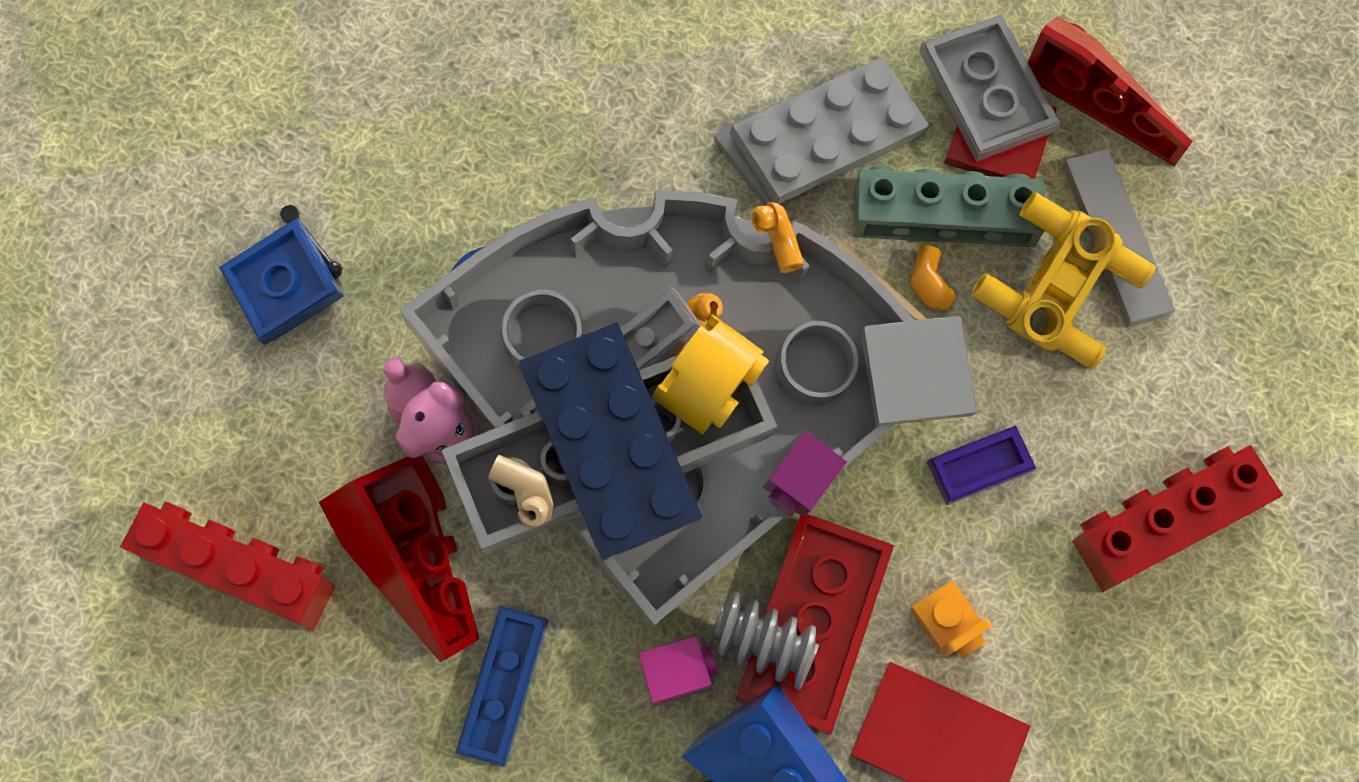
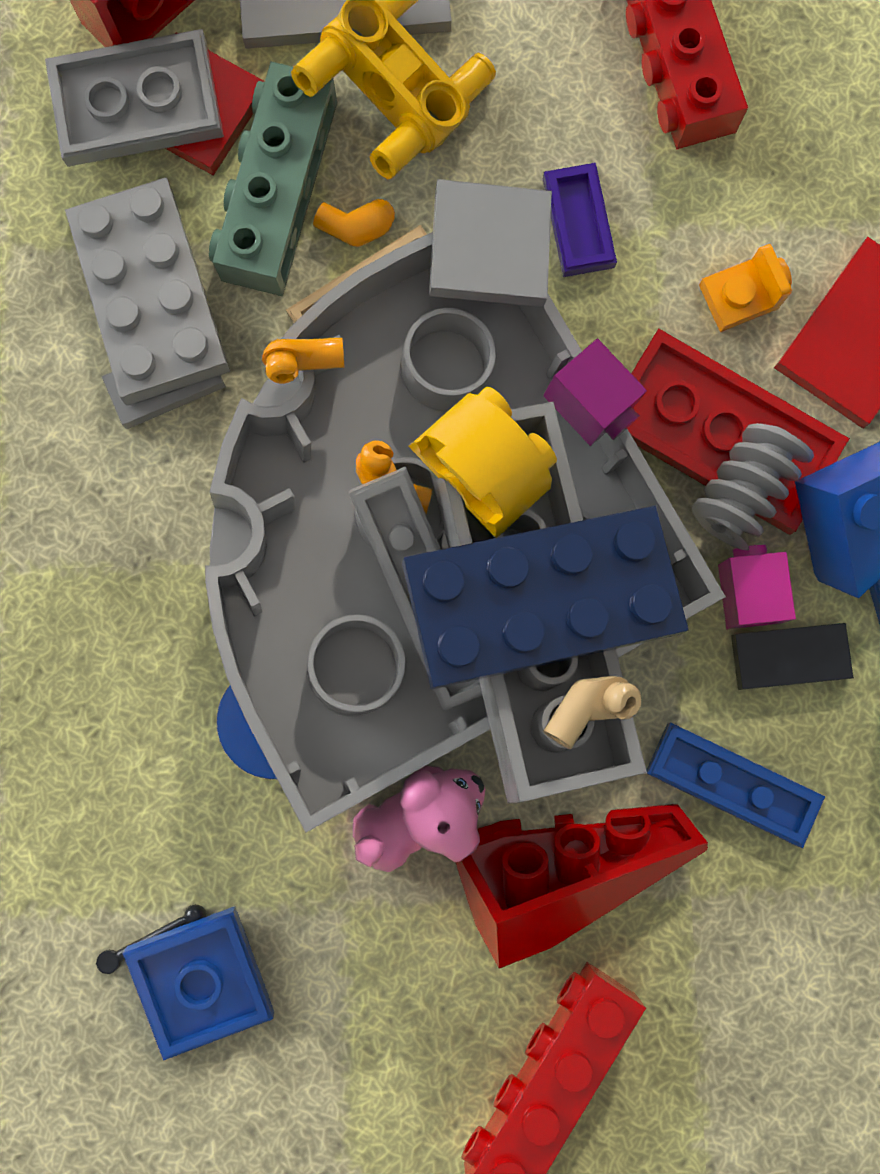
camera: 80 degrees left, 10 degrees up
(624, 719) = (792, 656): none -> black tile

